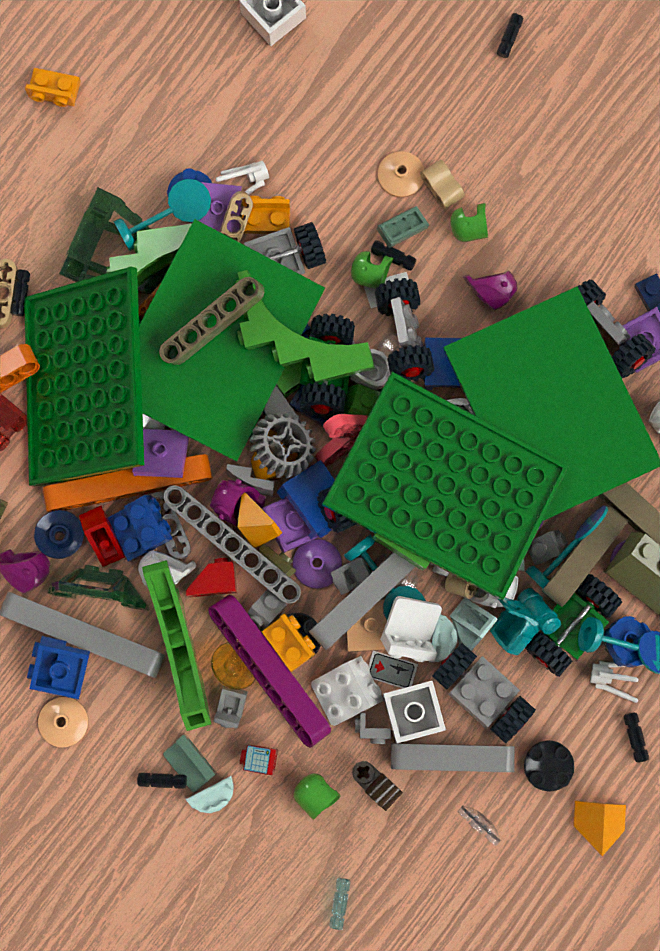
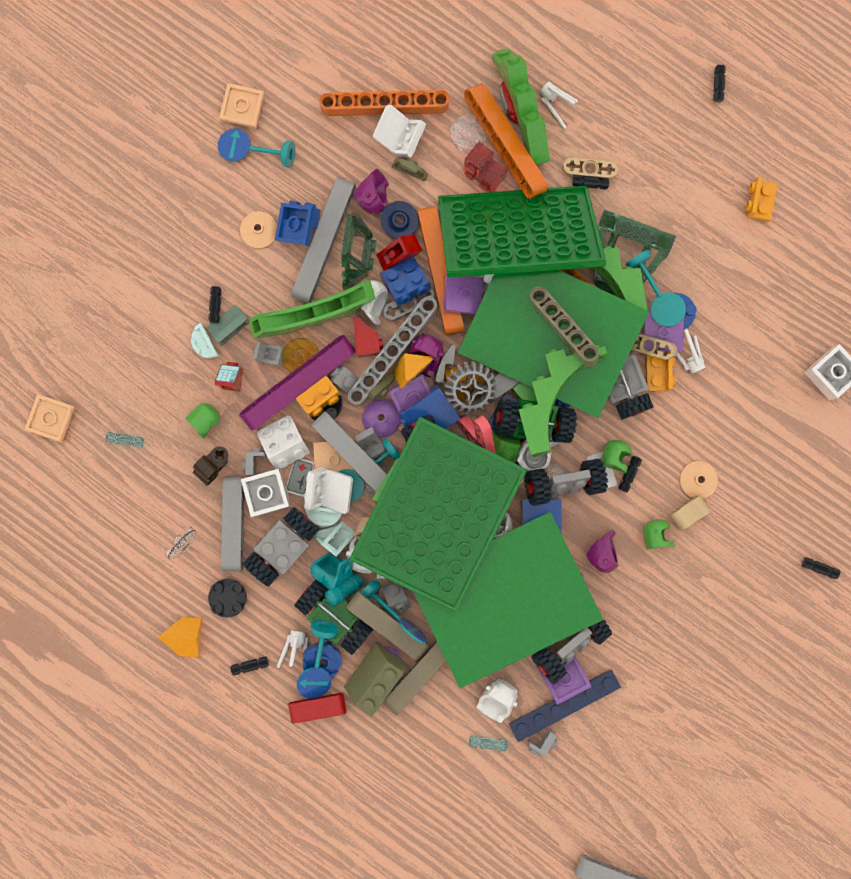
camera: 80 degrees right, 5 degrees up
(402, 226) = (653, 481): sand green plate -> none

